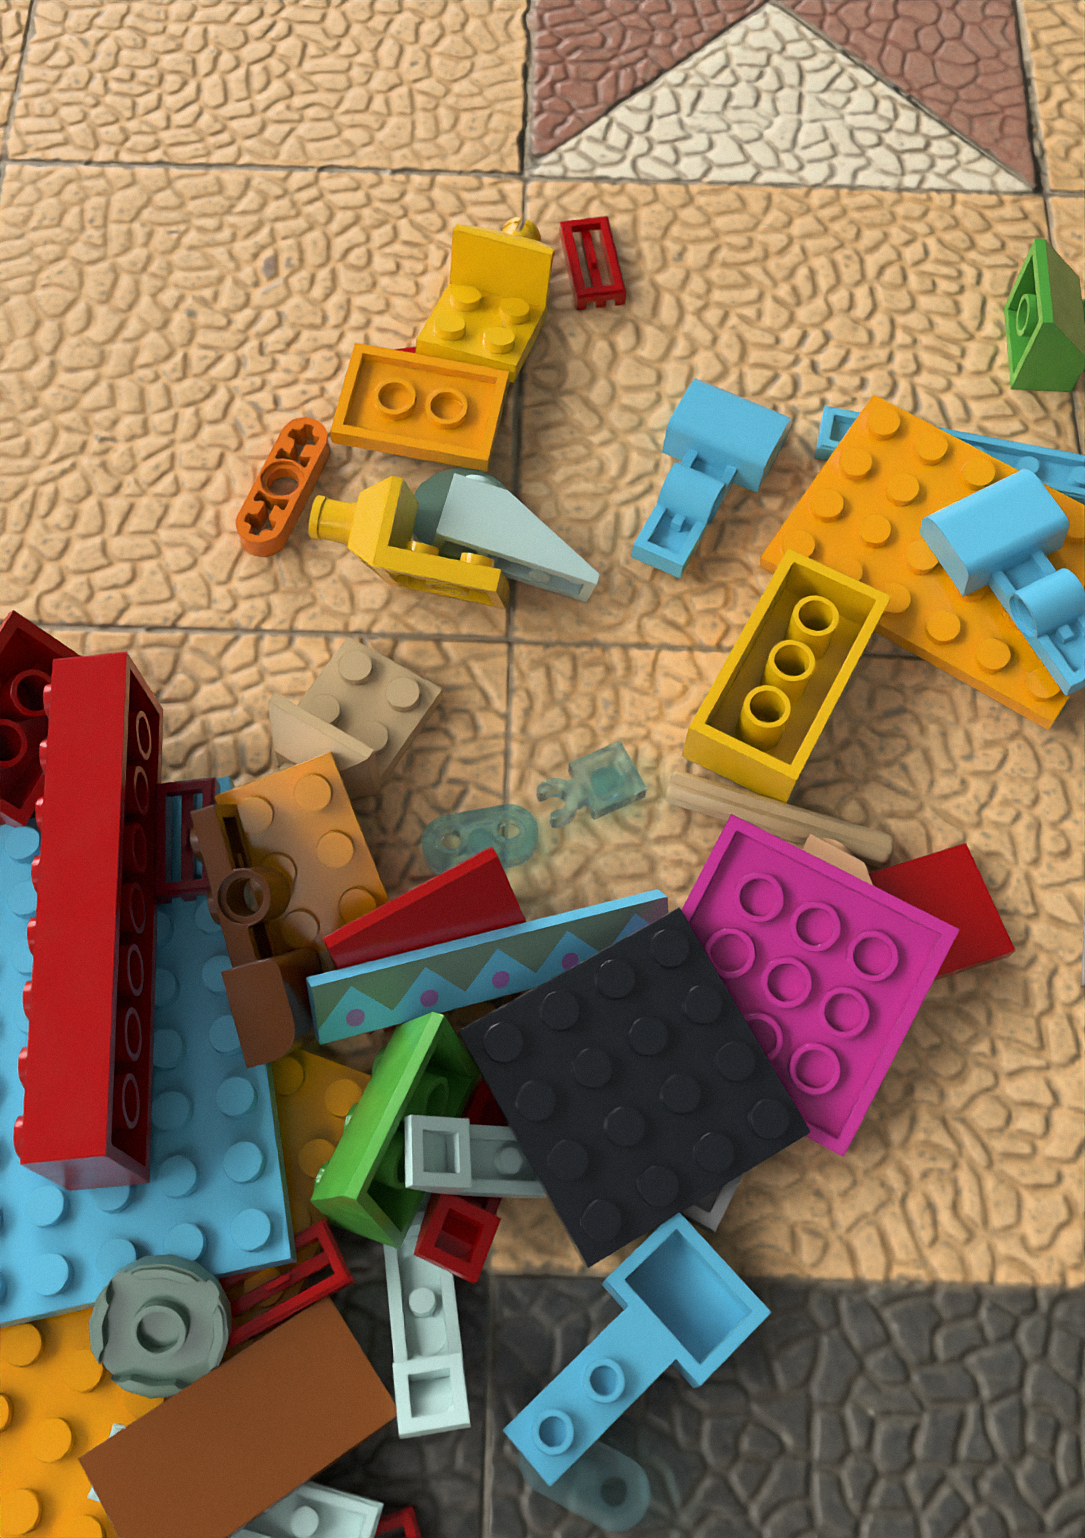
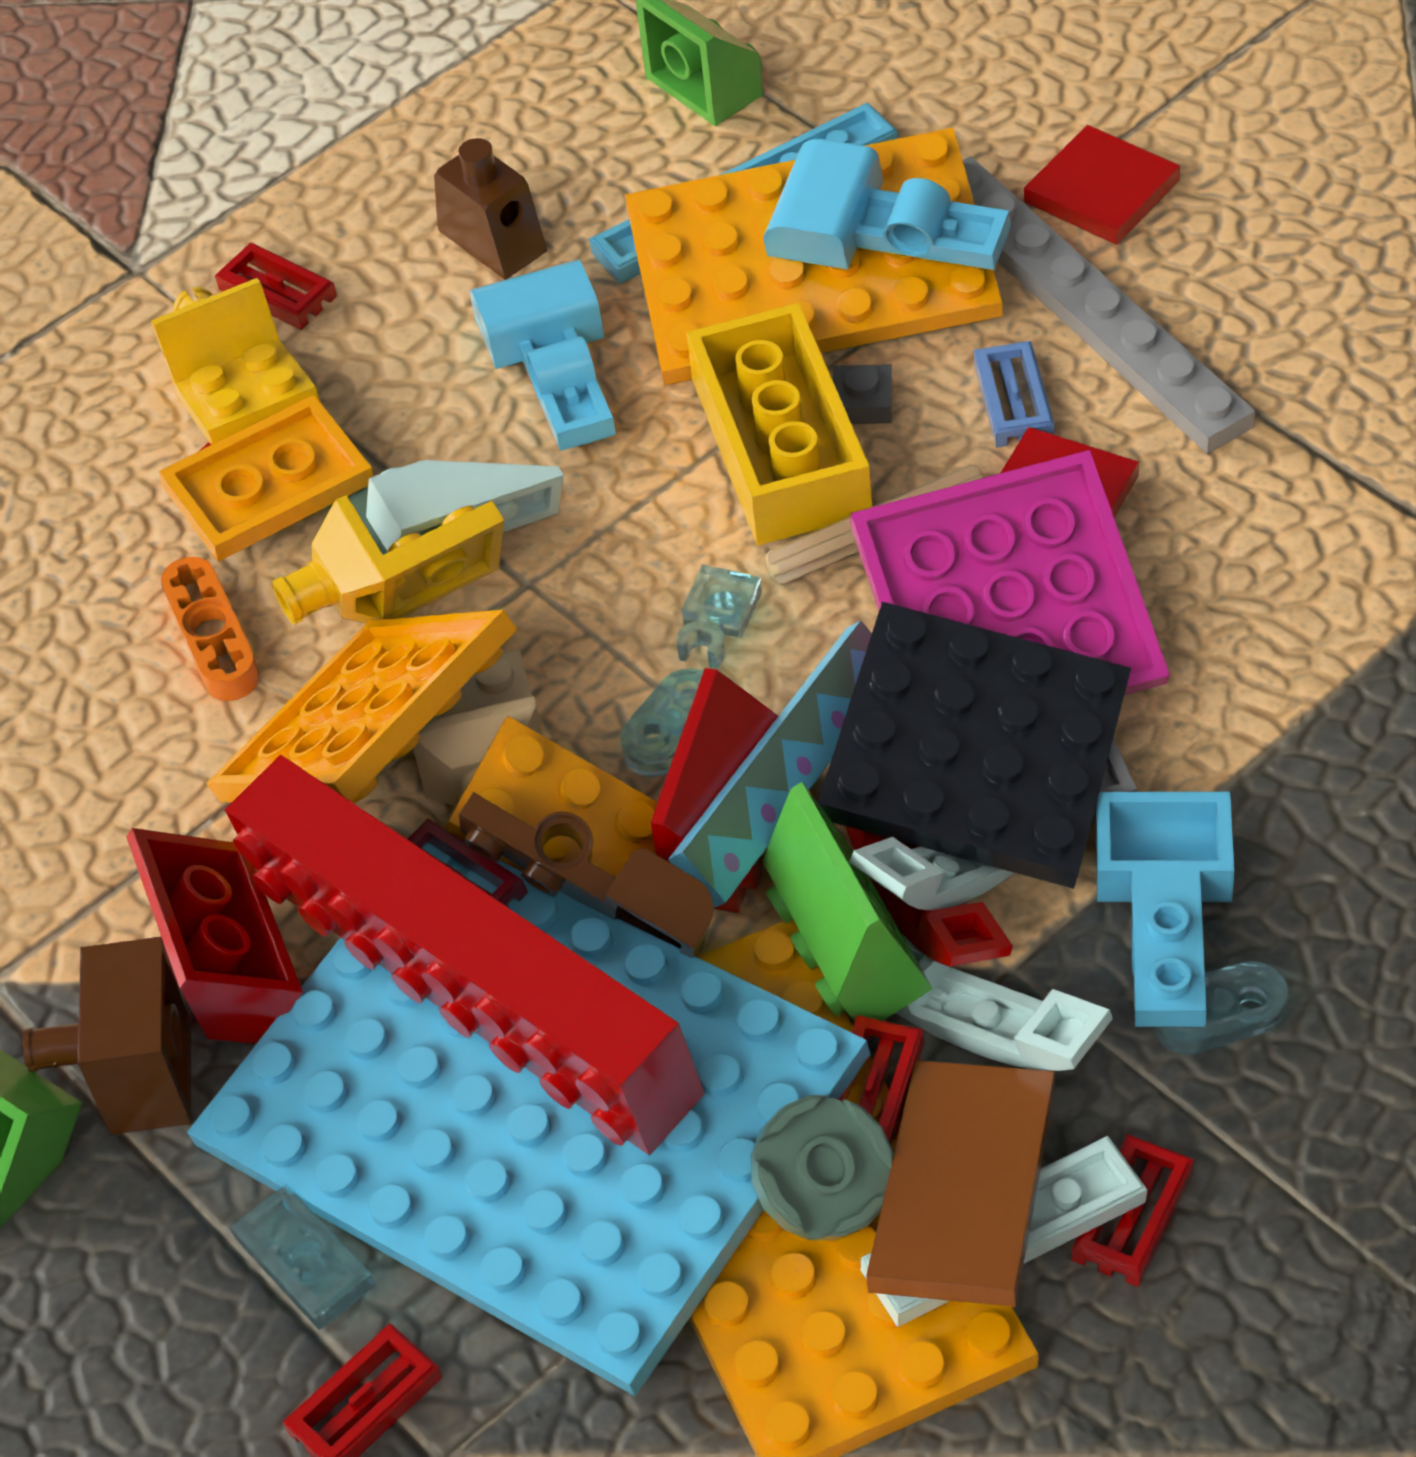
camera: 35 degrees left, 15 degrees down
(266, 652) = (371, 701): none -> light orange plate
(772, 306) = (488, 209): none -> reddish brown torso
(880, 701) = (865, 392): none -> dark grey plate
(961, 835) = (1017, 427): none -> medium blue tile

